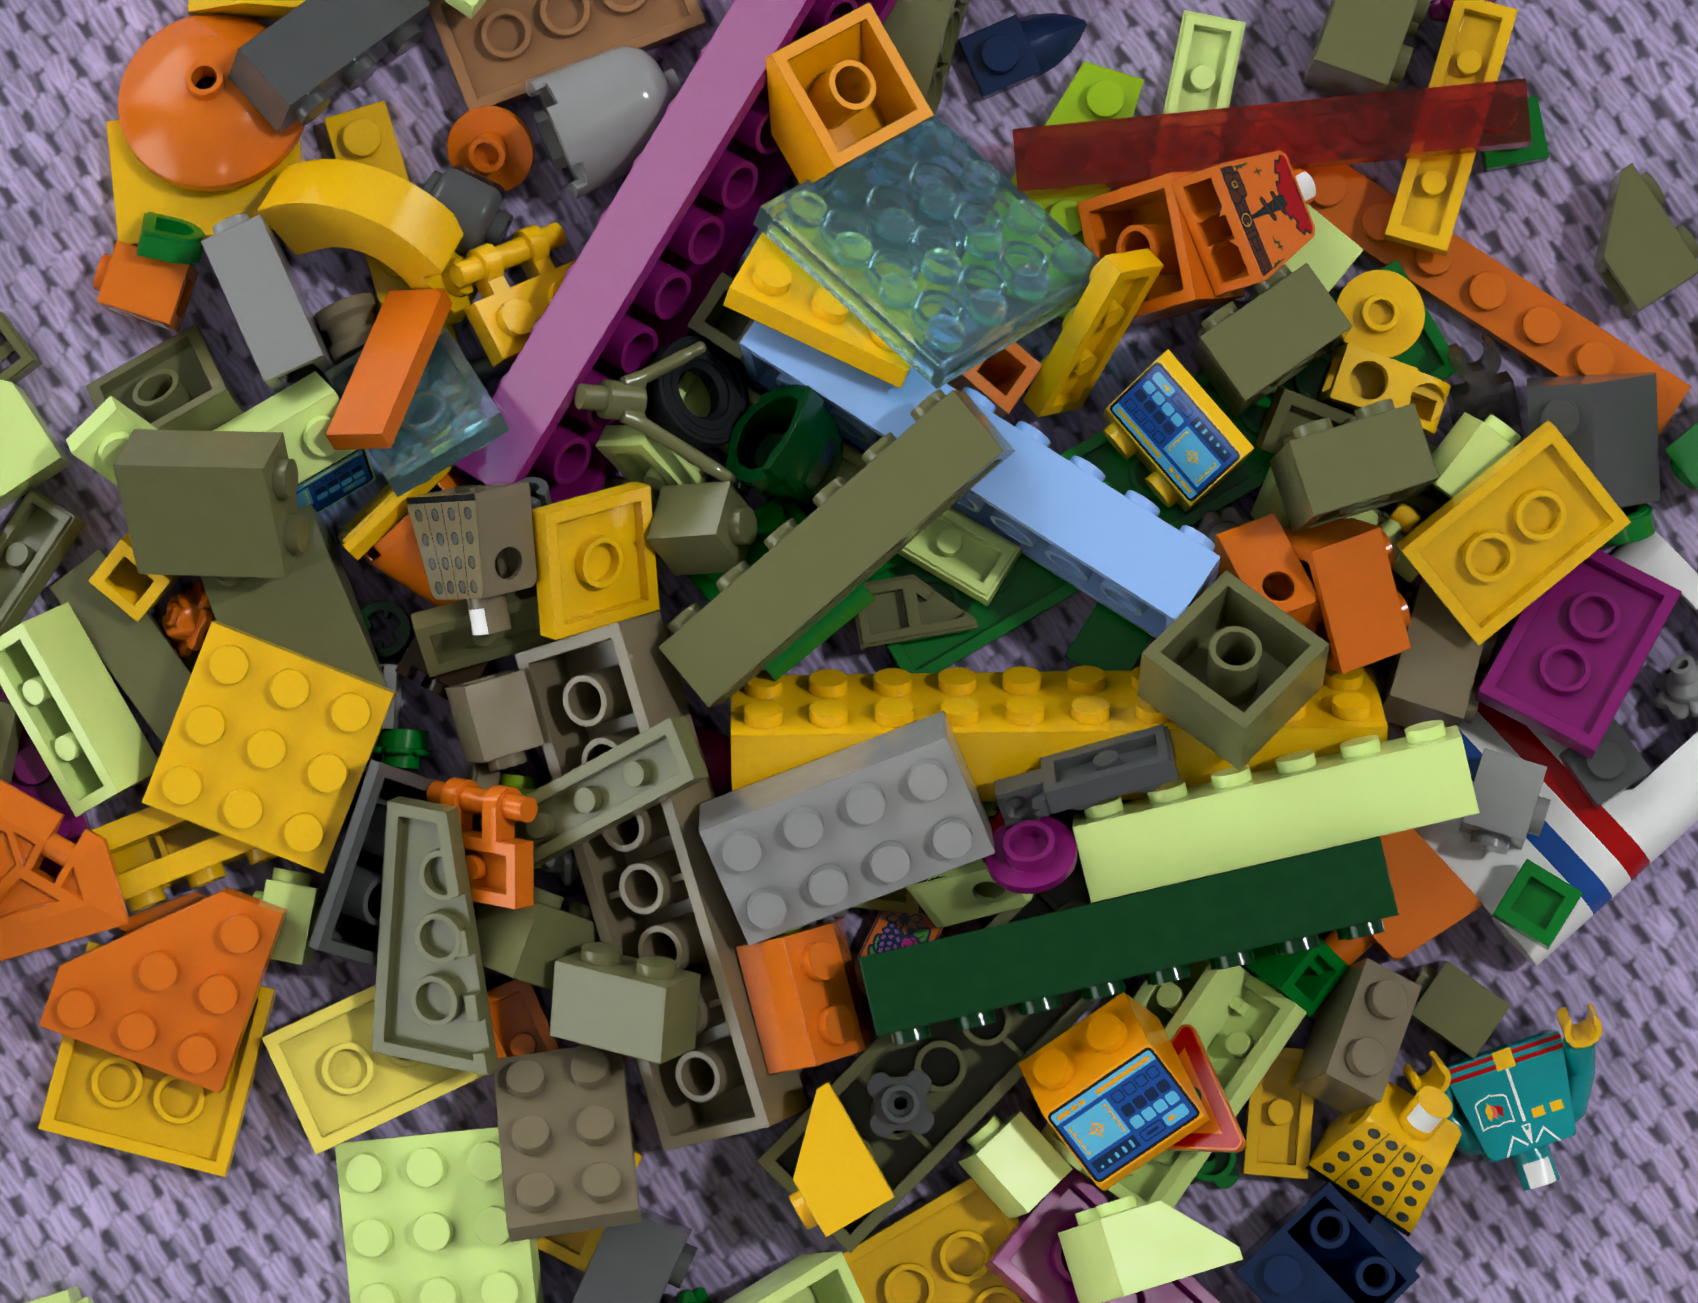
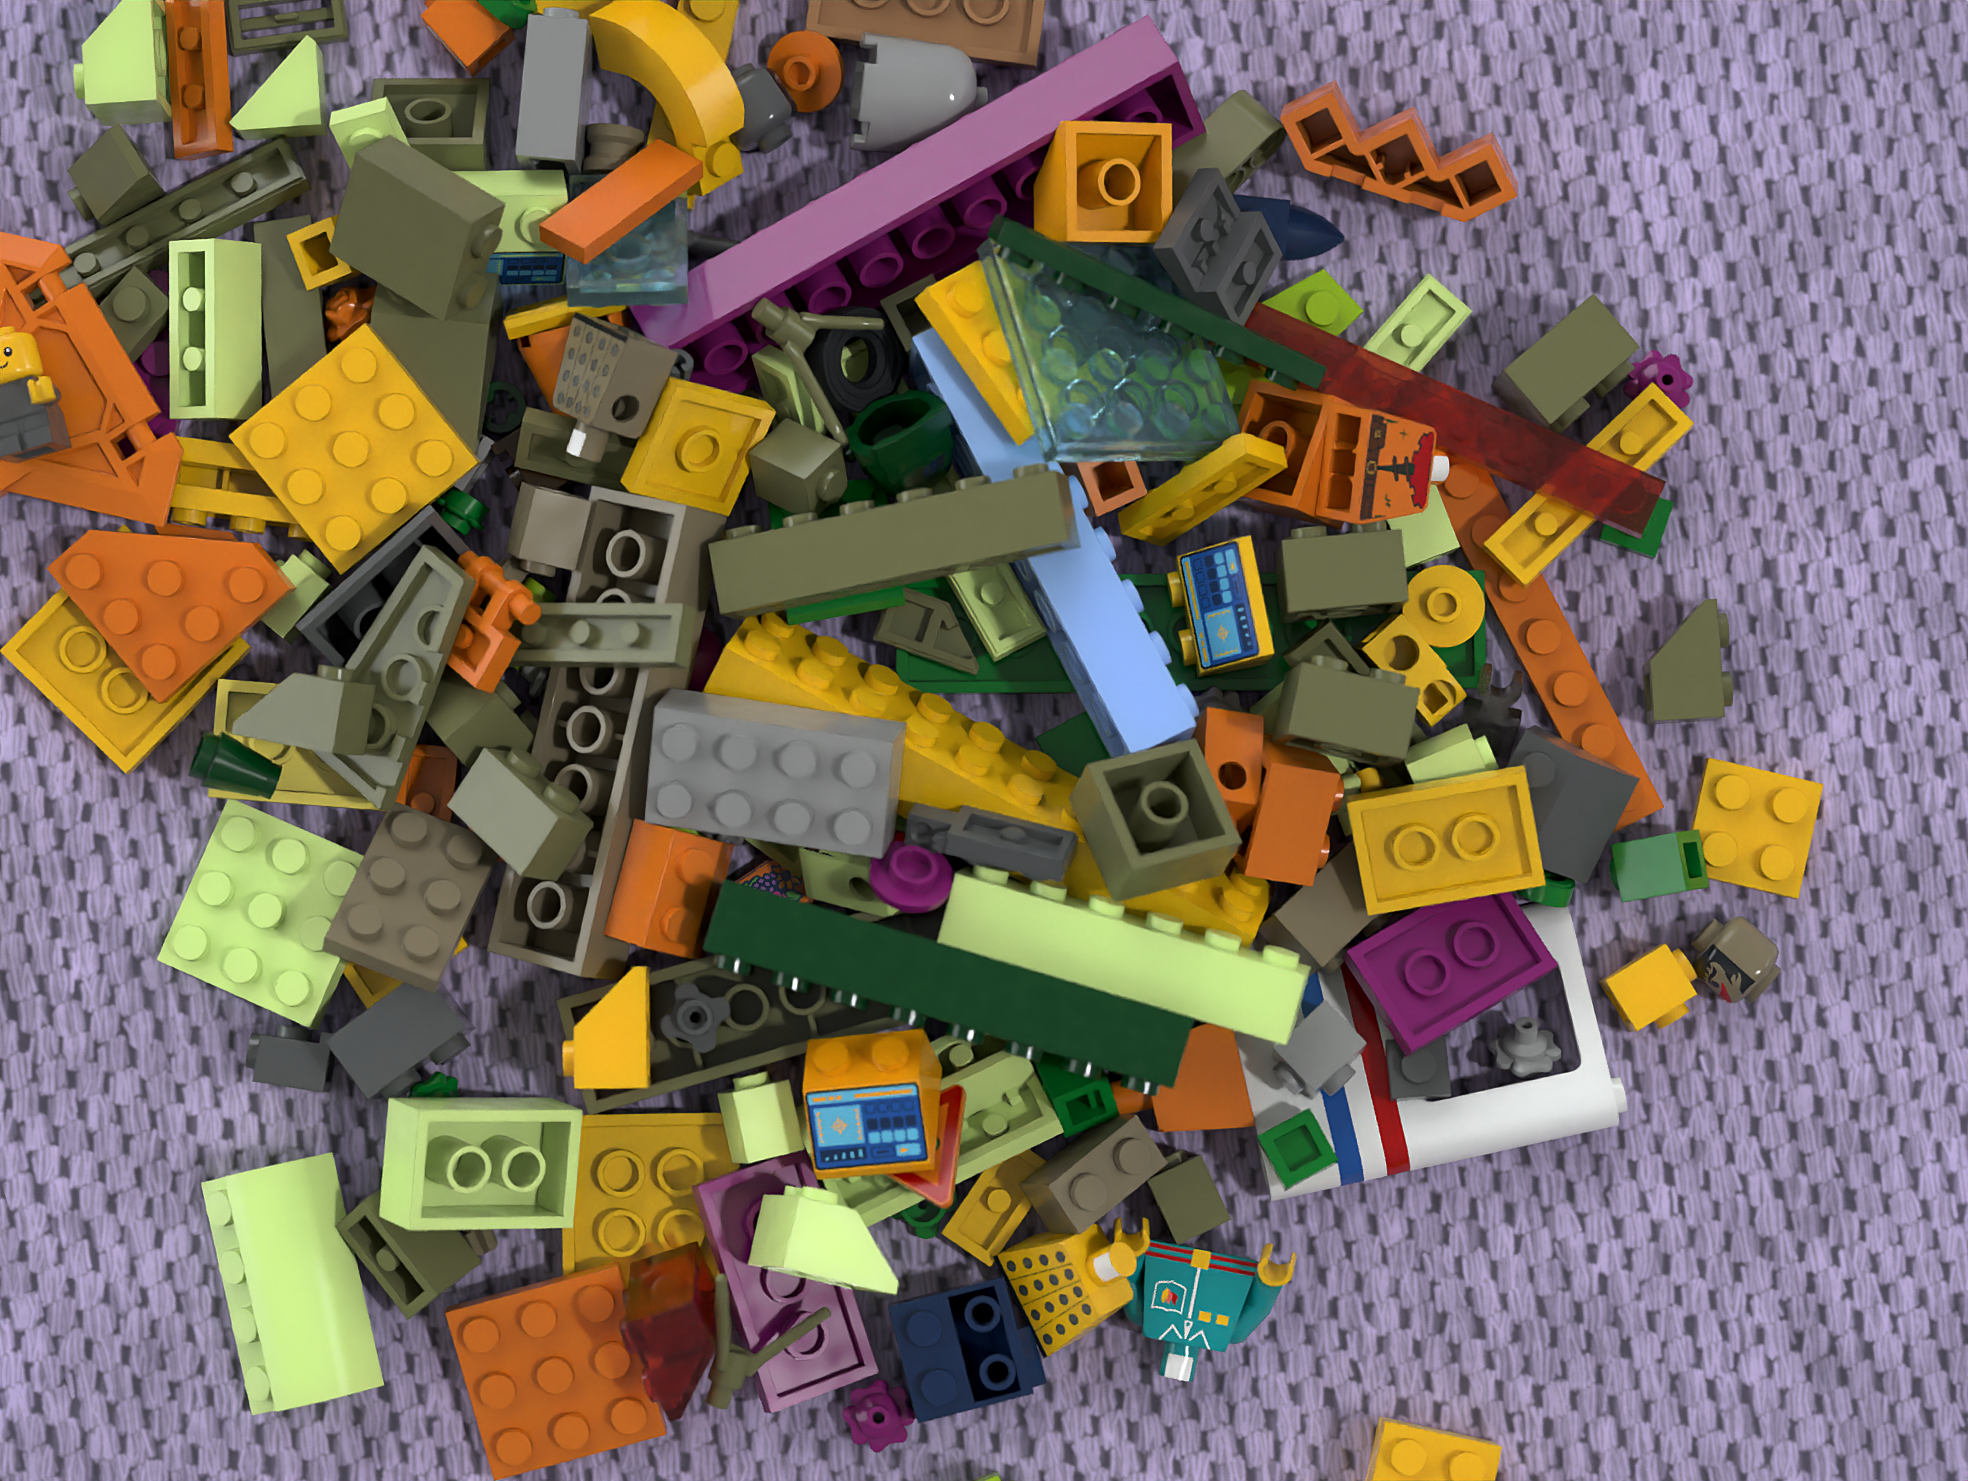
camera: 20 degrees right, 0 degrees up
(324, 1113) = (233, 767): none -> dark green cone
(373, 1019) = (313, 712): none -> olive slope
(508, 313) = (741, 209): yellow plate -> none
(926, 183) = (1131, 294): none -> dark green plate
(980, 99) = (1216, 250): none -> dark grey slope

